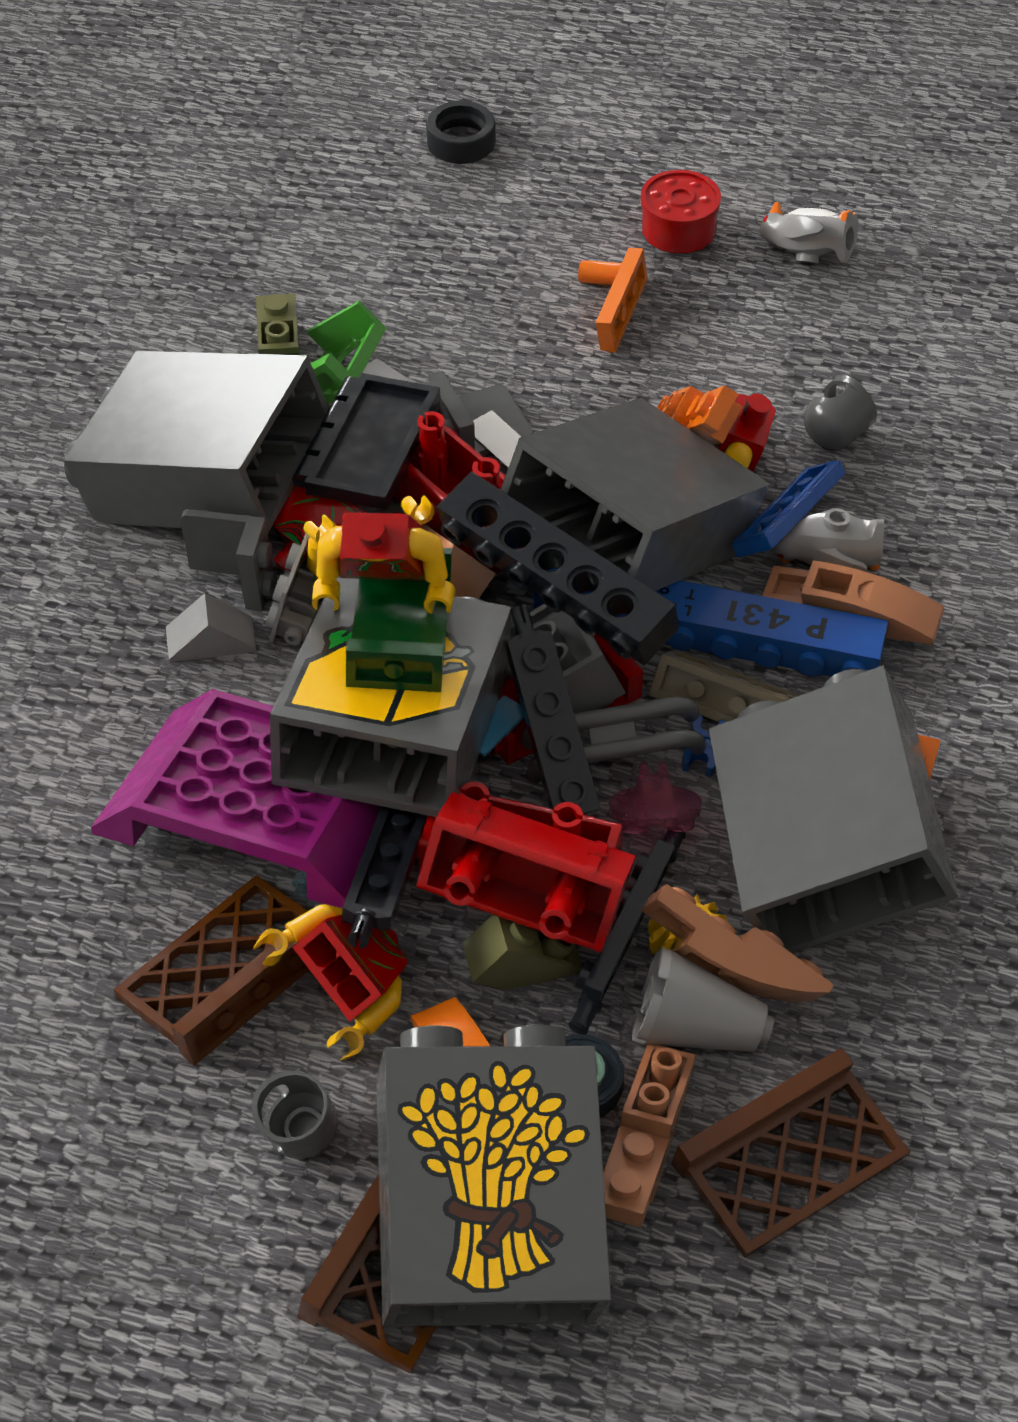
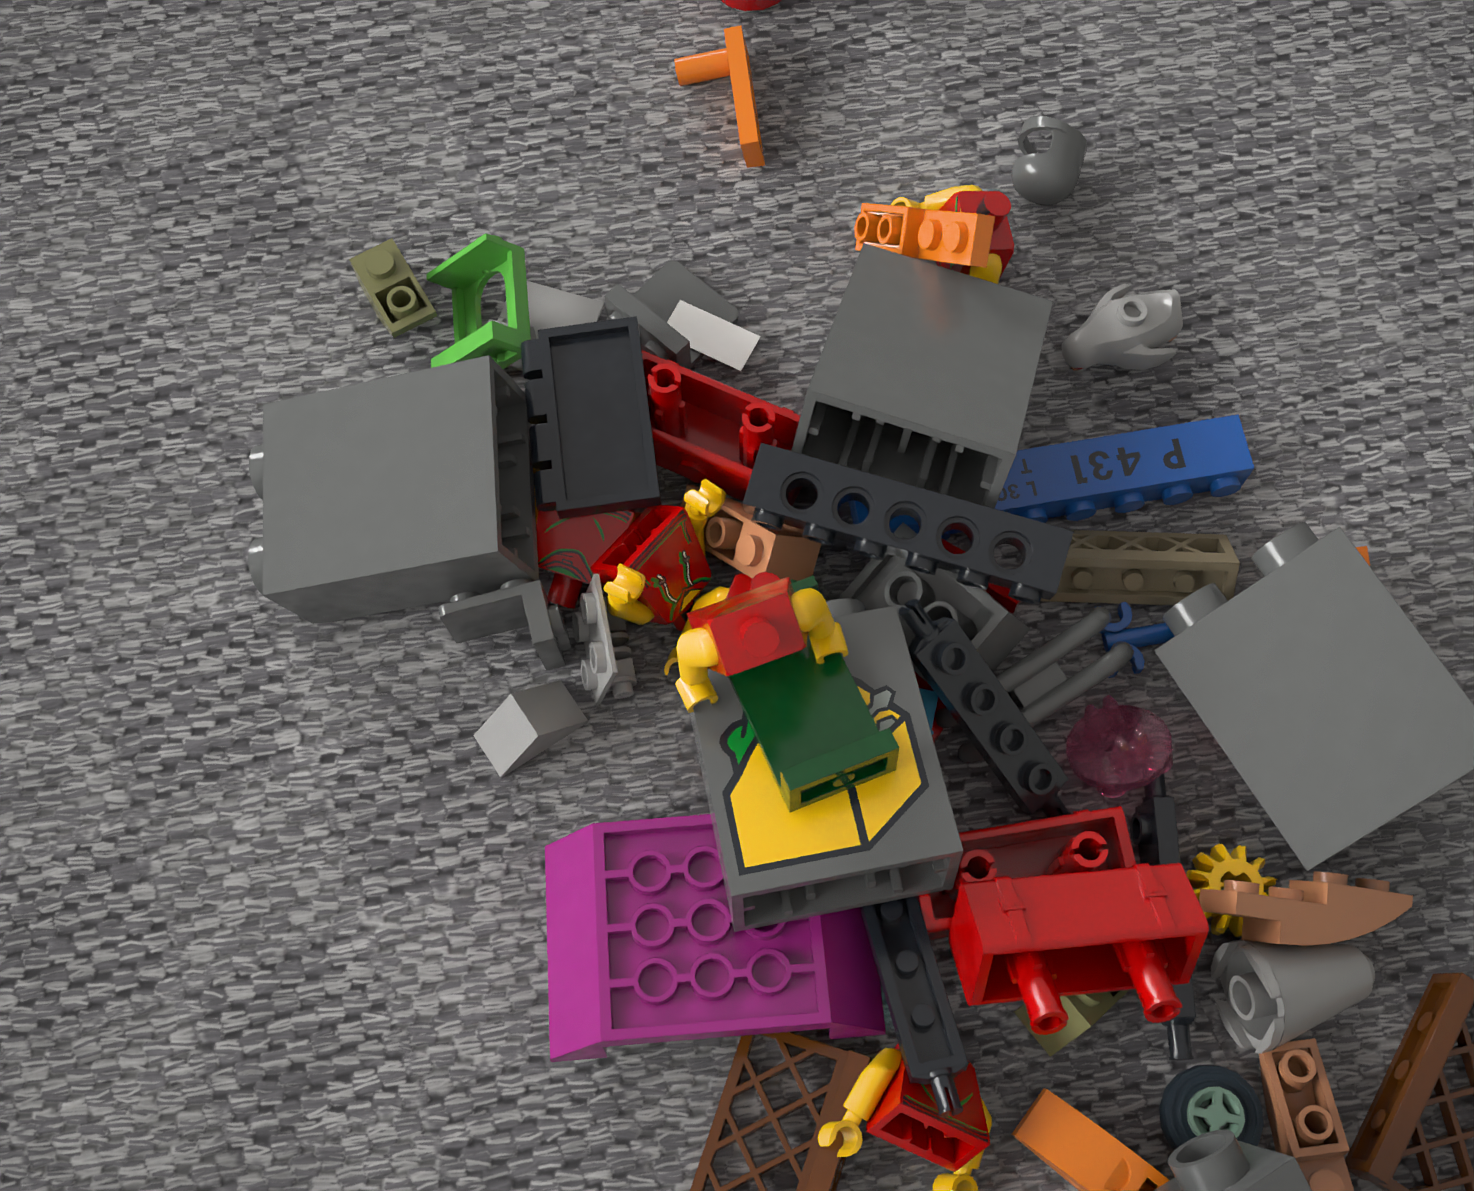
camera: 25 degrees left, 20 degrees up
(788, 508) = (1067, 283): blue tile -> none
(854, 591) = (1180, 397): nougat slope -> none

